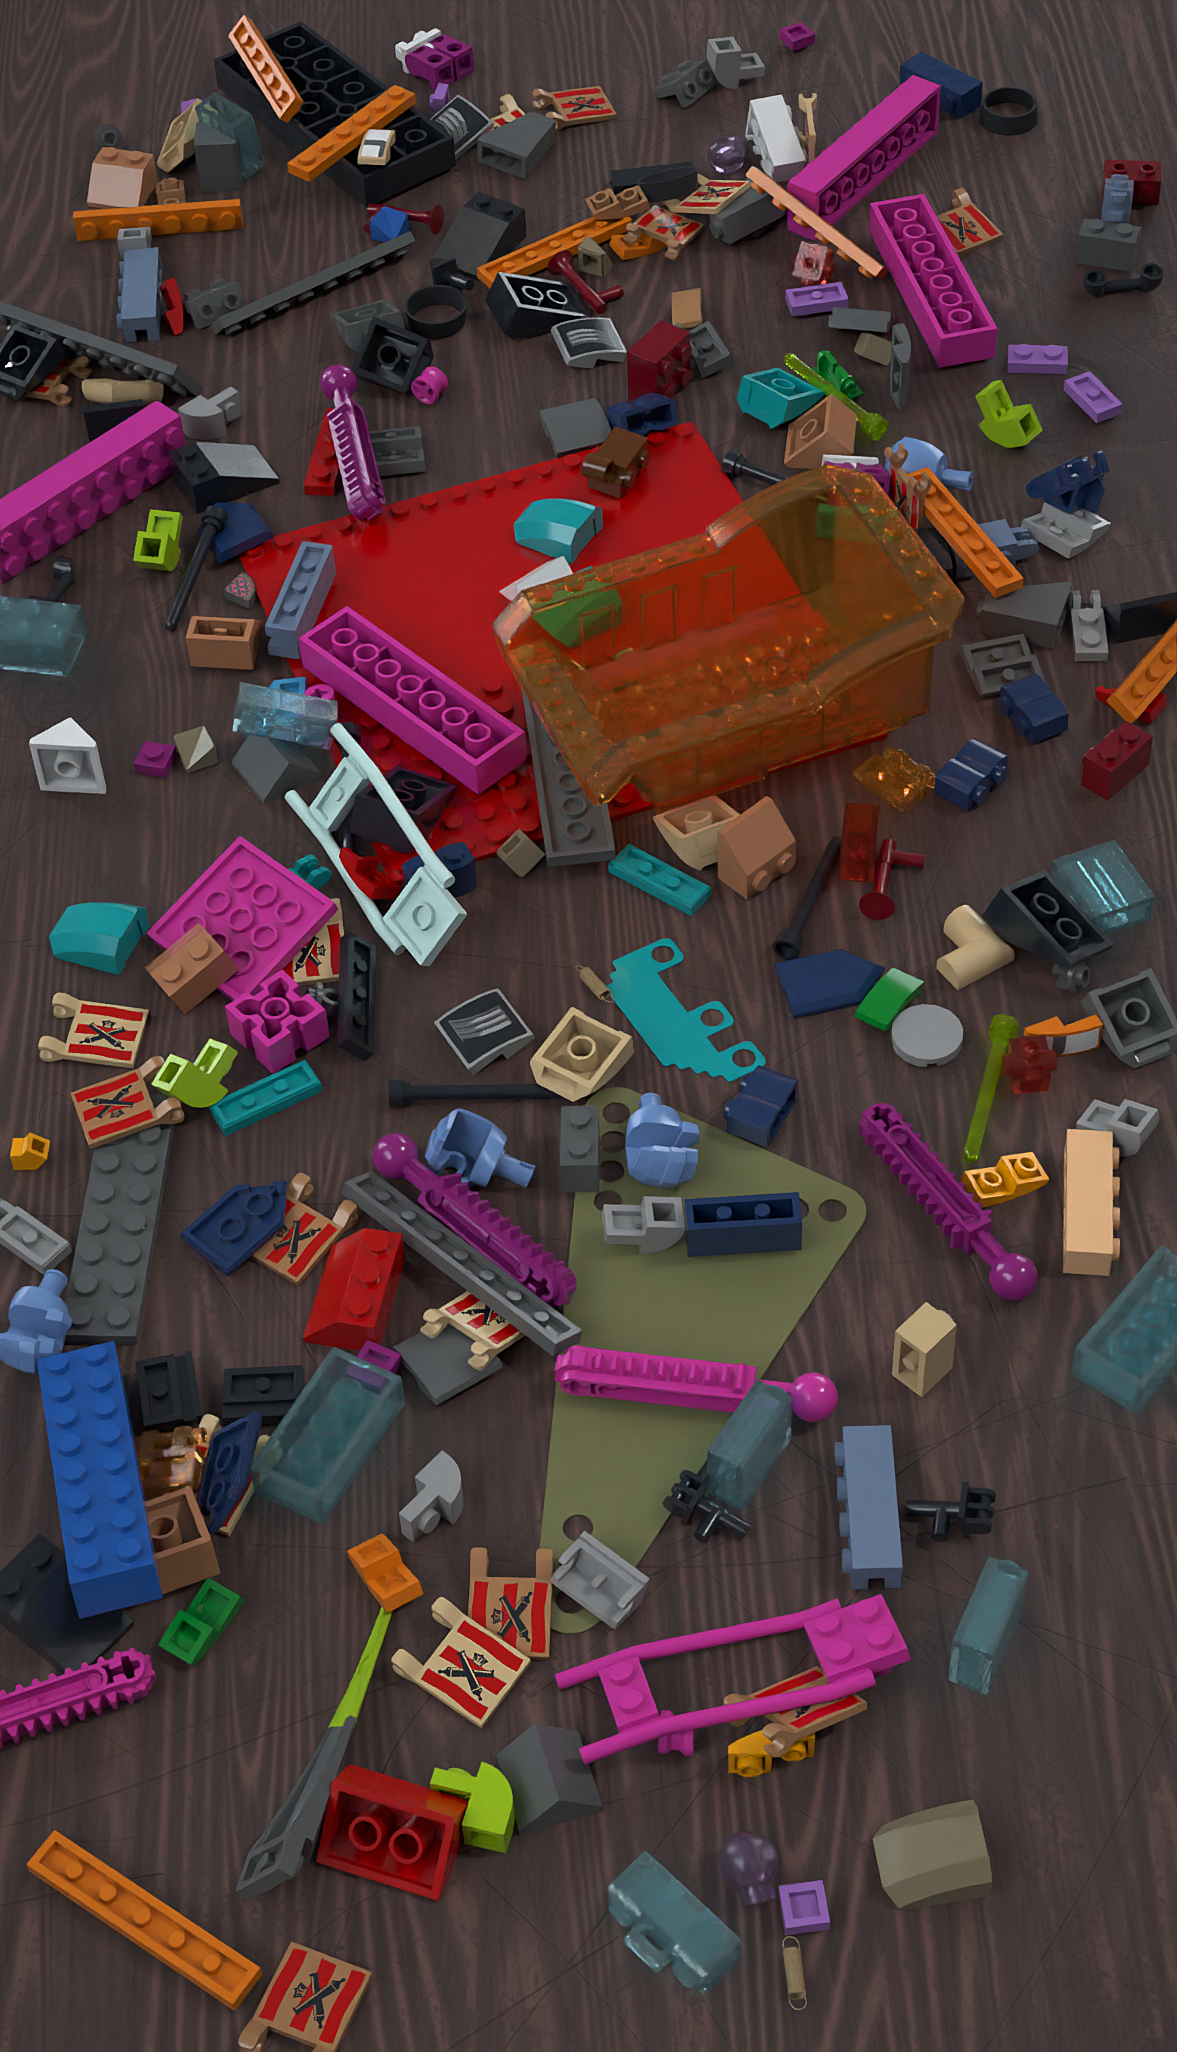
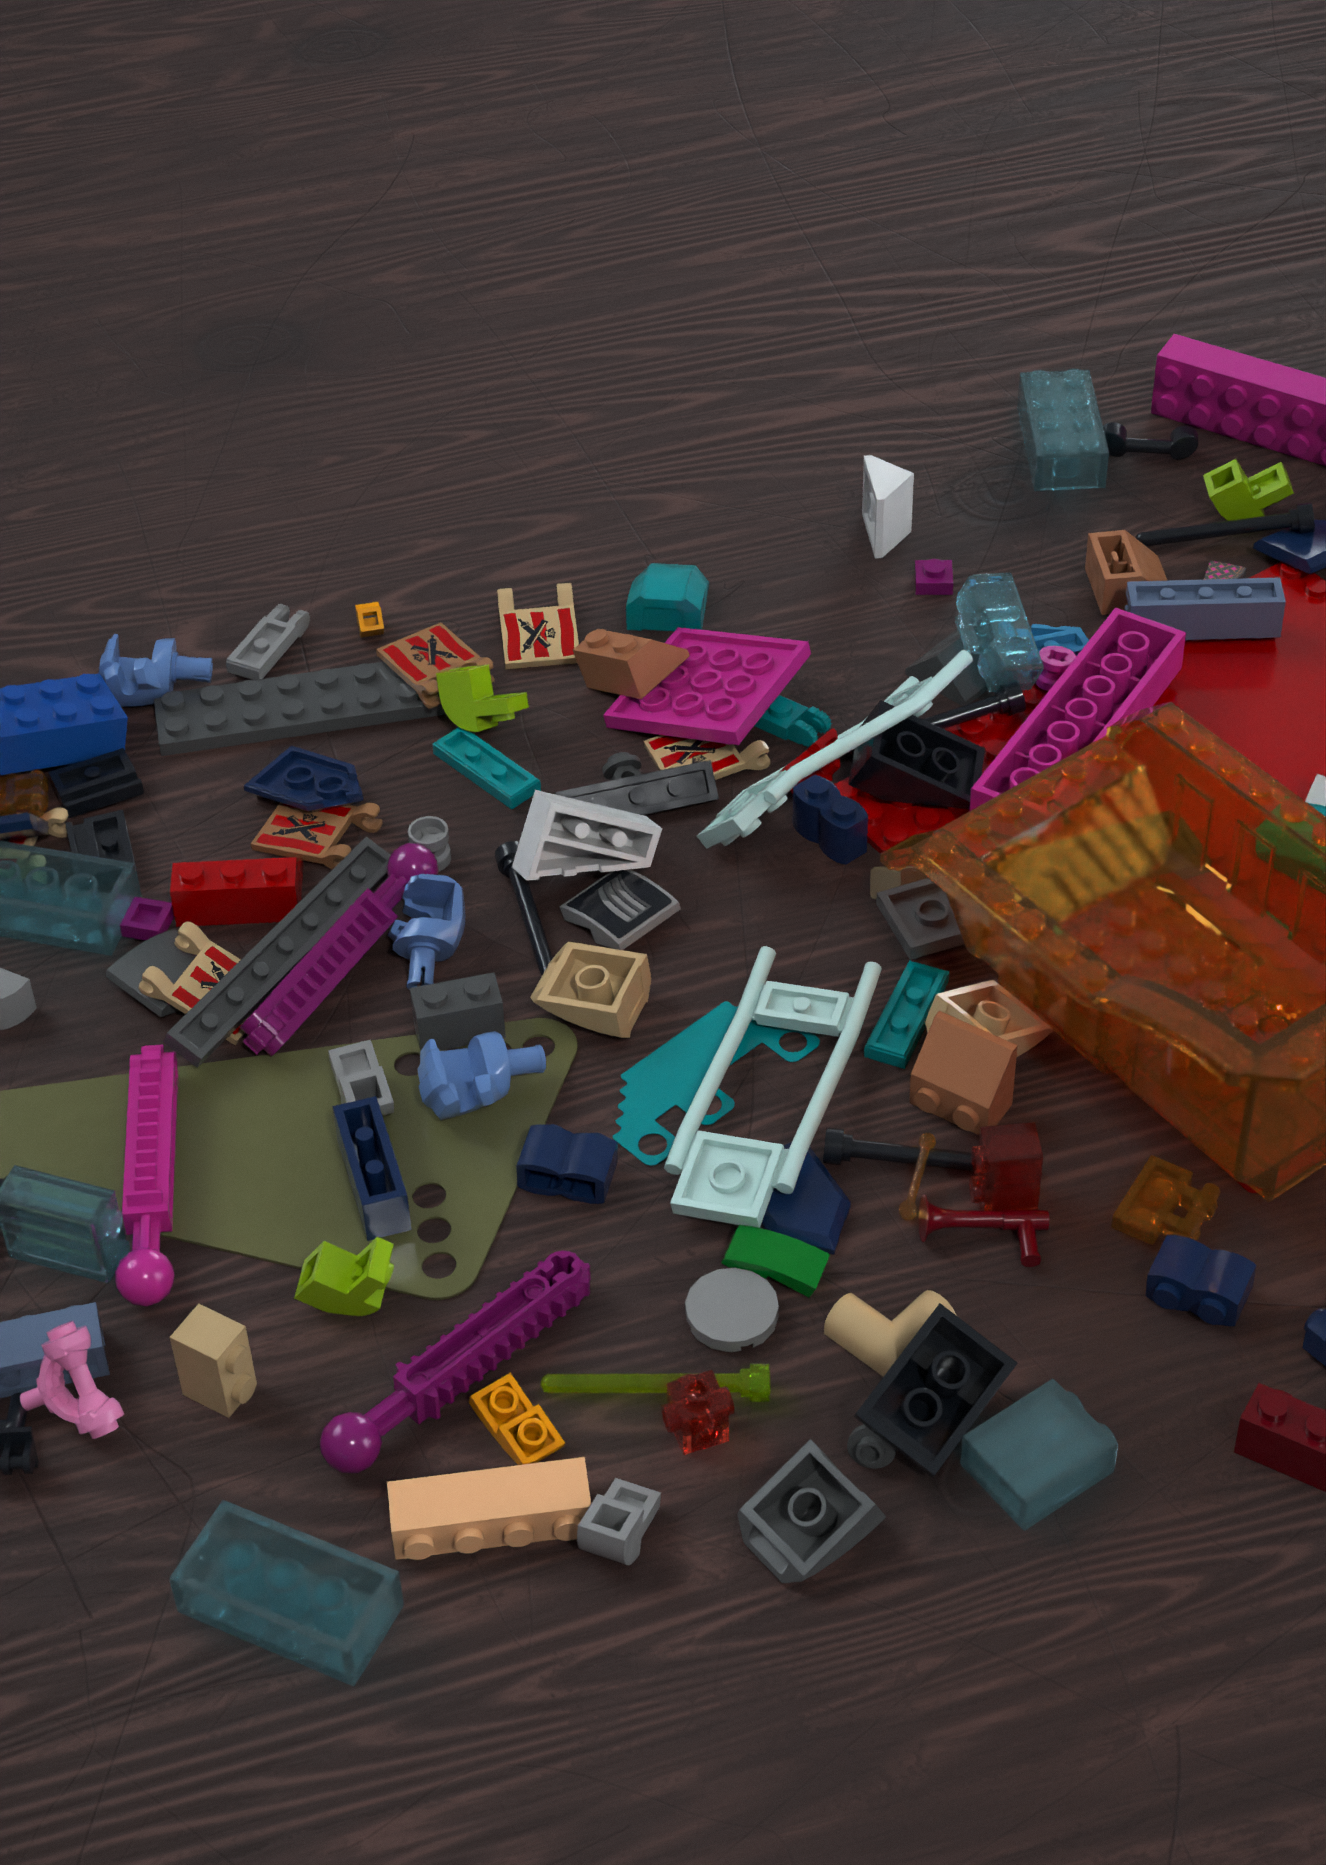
camera: 75 degrees right, 5 degrees down
(195, 749) = (944, 601): dark tan slope -> none
(277, 1021) = (570, 739): dark pink brick -> none
(358, 1142) = (434, 835): none -> light grey wheel
(416, 1028) = (582, 836): none -> white wedge
(594, 983) = (722, 988): tan piece -> none
(808, 1005) = (735, 1176): none -> light aqua plate
(852, 1255) = (345, 1281): none -> lime brick
(855, 918) = (908, 1208): none -> clear orange hinge
(945, 1448) = (93, 1410): none -> bright pink piece
(1069, 1039) = (756, 1438): slope -> none

